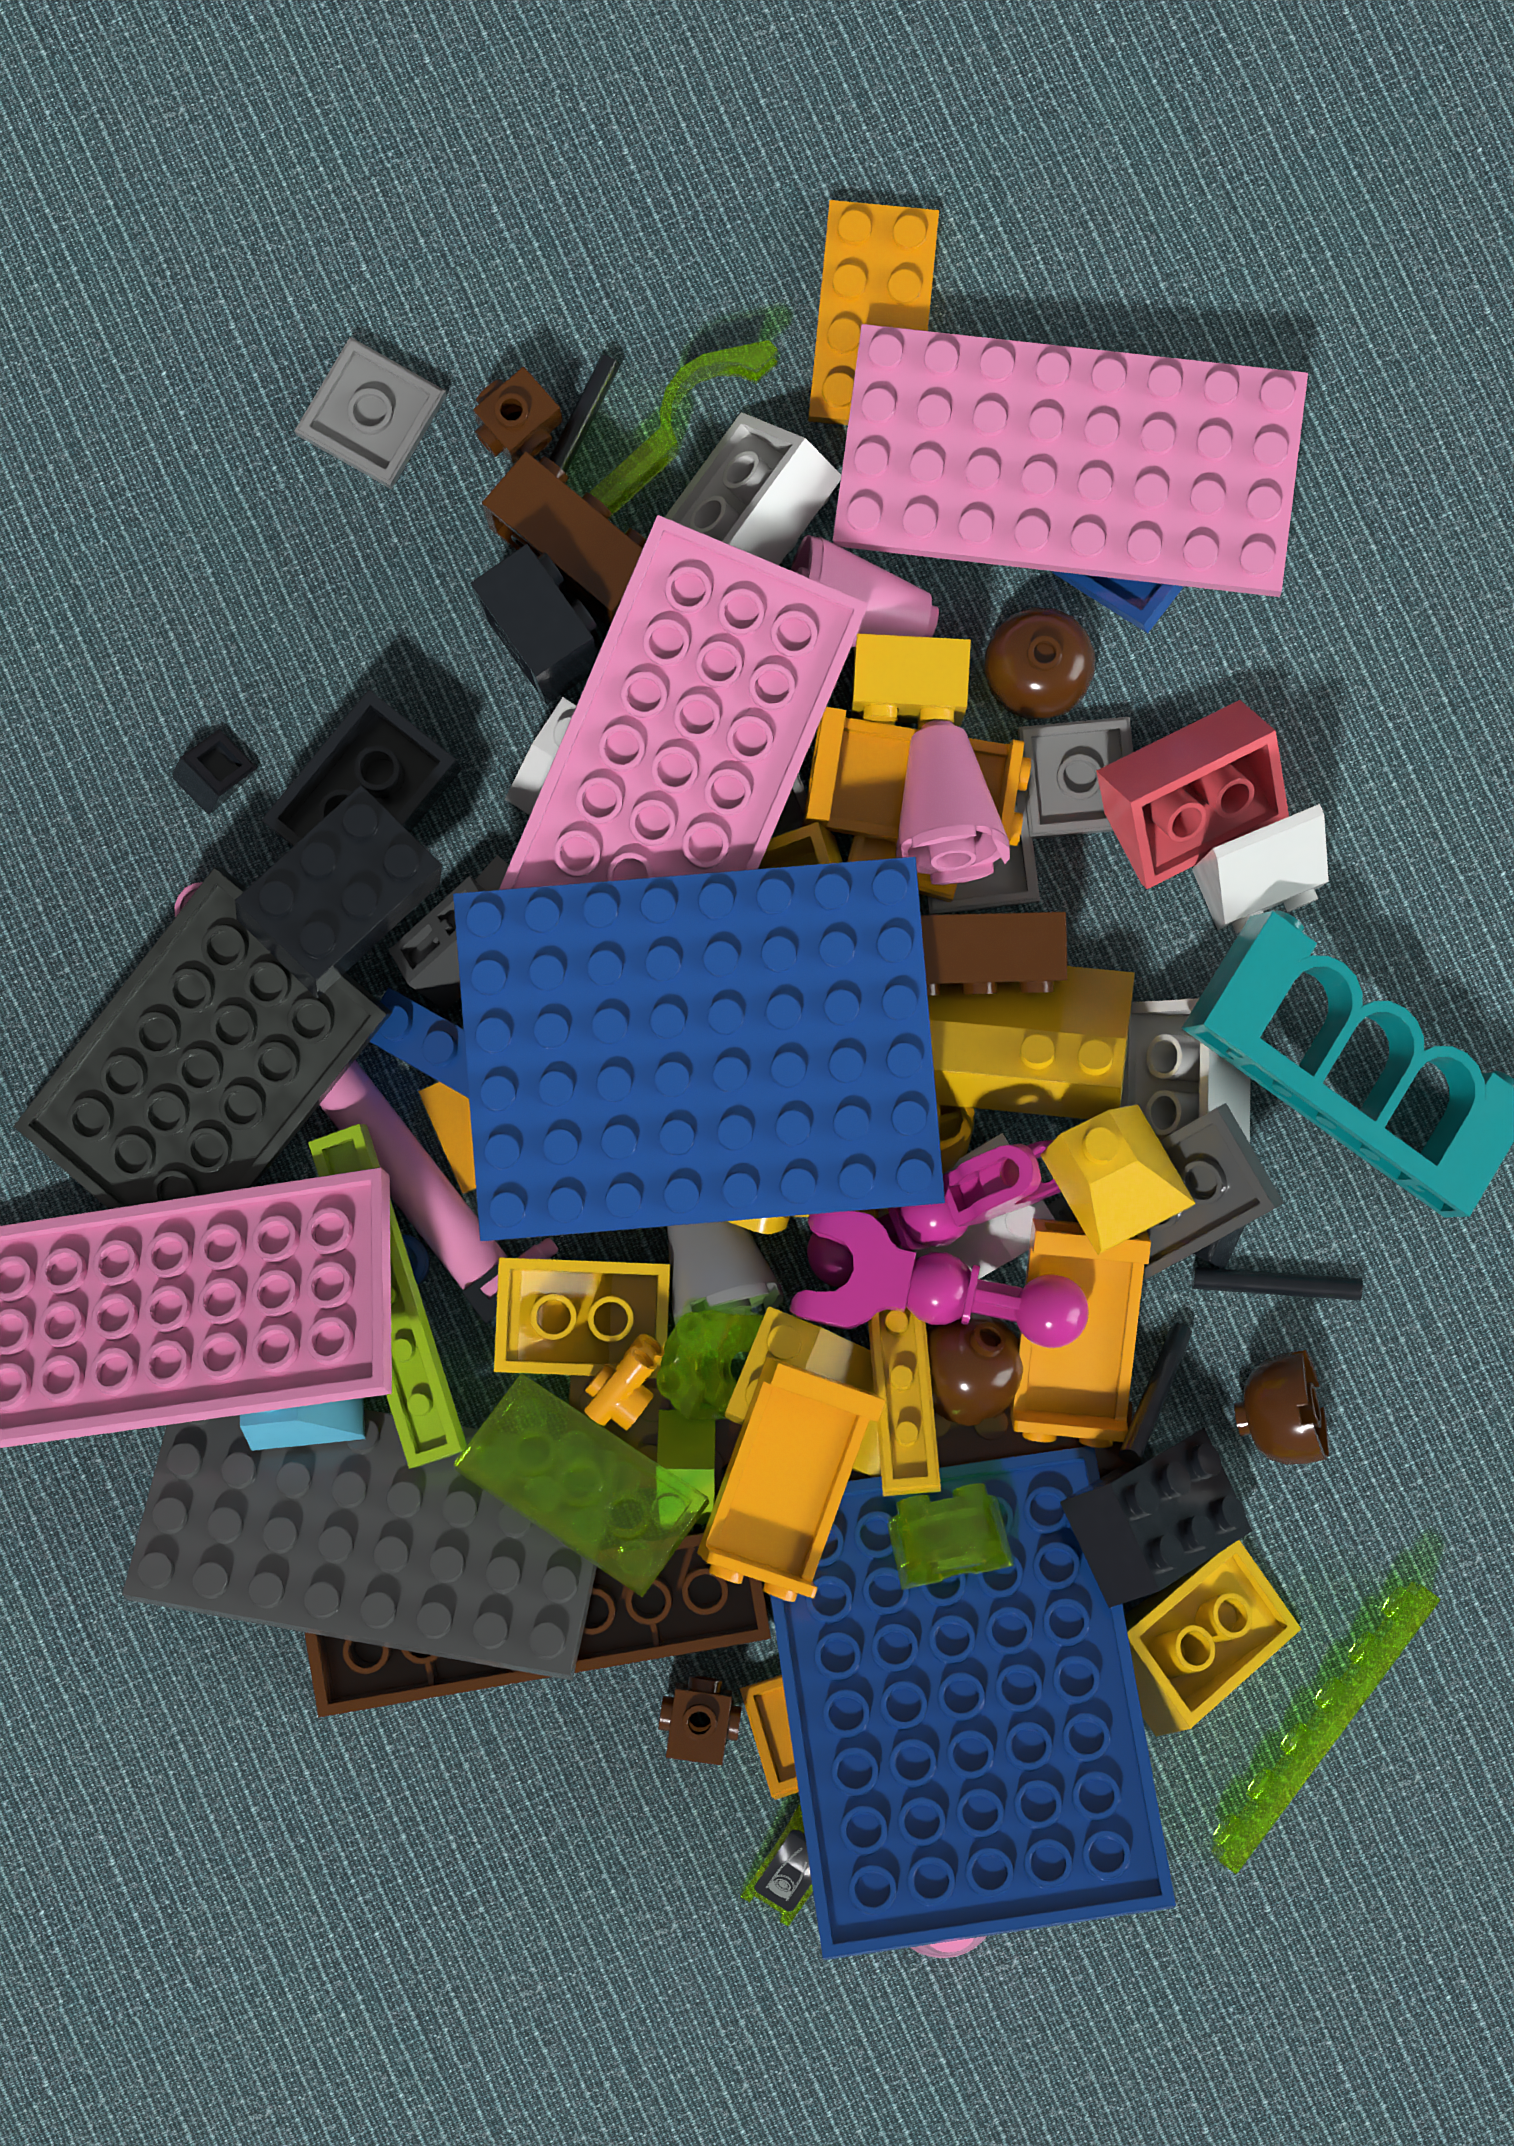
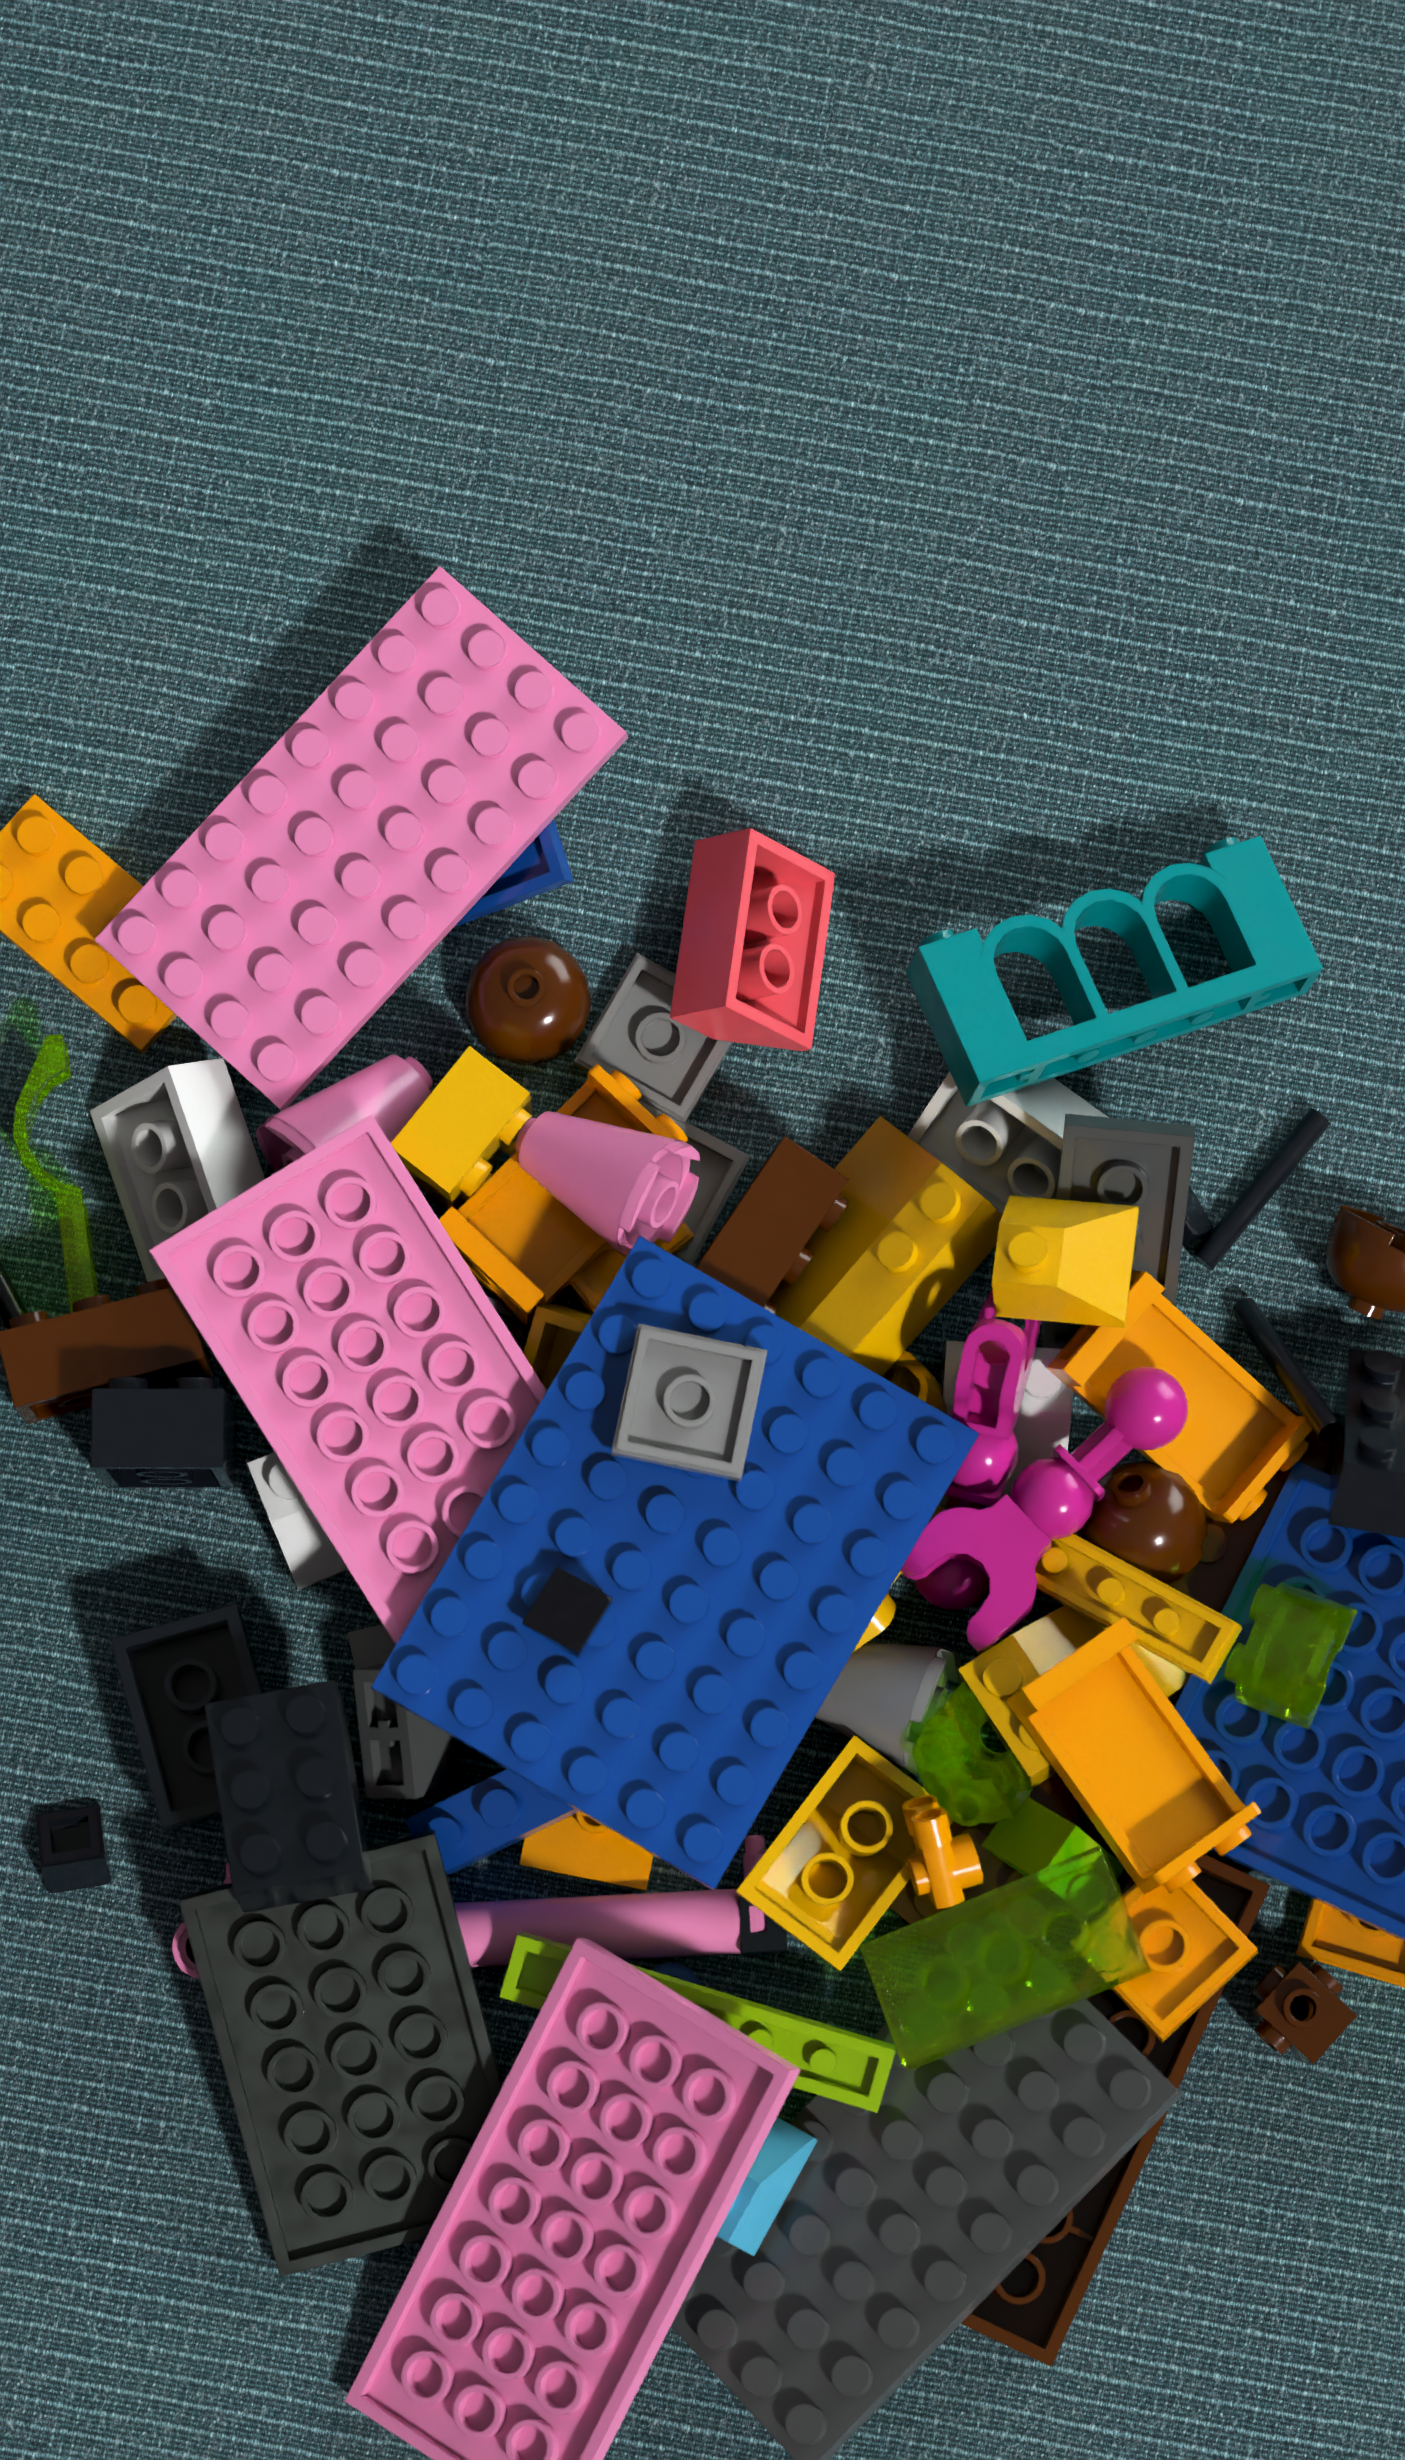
camera: 60 degrees left, 5 degrees down
(602, 995) = (568, 1611): none -> black slope
(678, 1612) = (1189, 1954): none -> light orange plate
(817, 976) = (689, 1402): none -> light grey tile
(1265, 869) = (873, 929): white slope -> none

